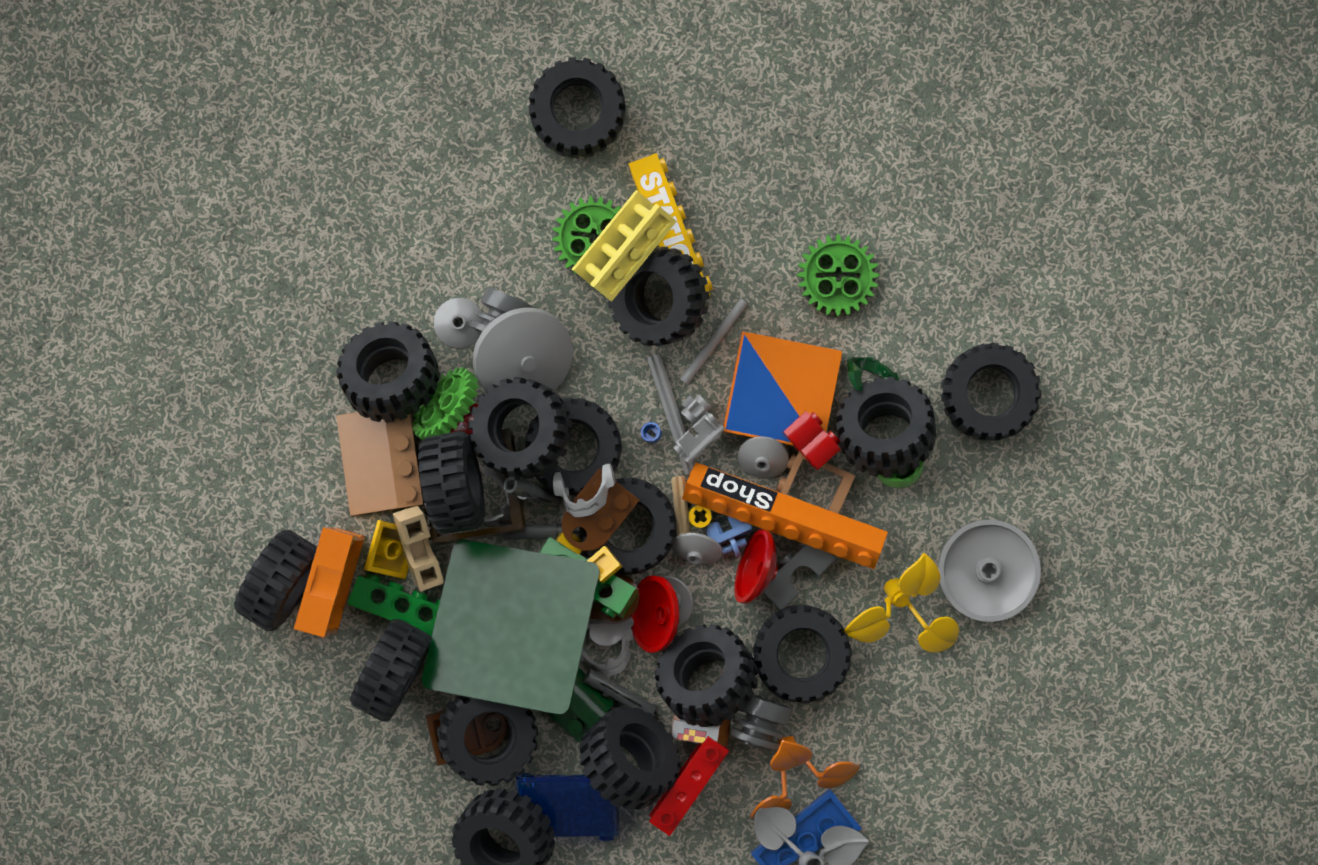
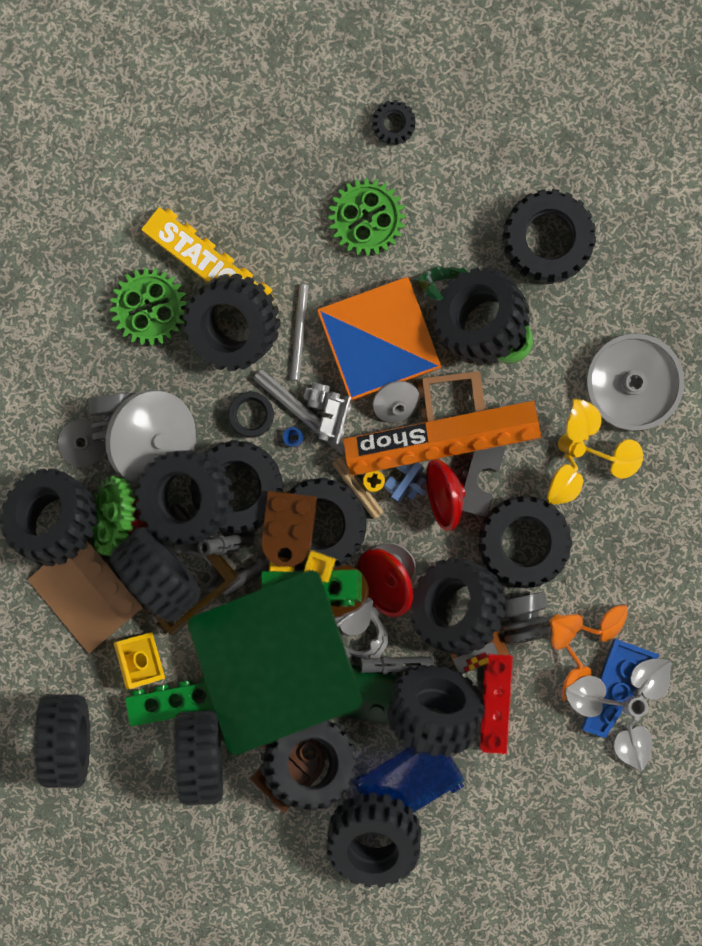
camera: 25 degrees left, 0 degrees up
(329, 581) = (104, 716): orange tile -> none
(417, 549) = (163, 650): tan arch -> none
(577, 73) = (54, 181): black tyre -> none
(585, 508) = (274, 530): light grey helmet -> none
(624, 245) = (178, 297): light yellow fence -> none
(626, 370) = (254, 396): none -> black tyre
(697, 548) = (387, 508): light grey dish -> none
(812, 440) = (427, 363): red brick -> none
(924, 194) = (383, 112): none -> black tyre

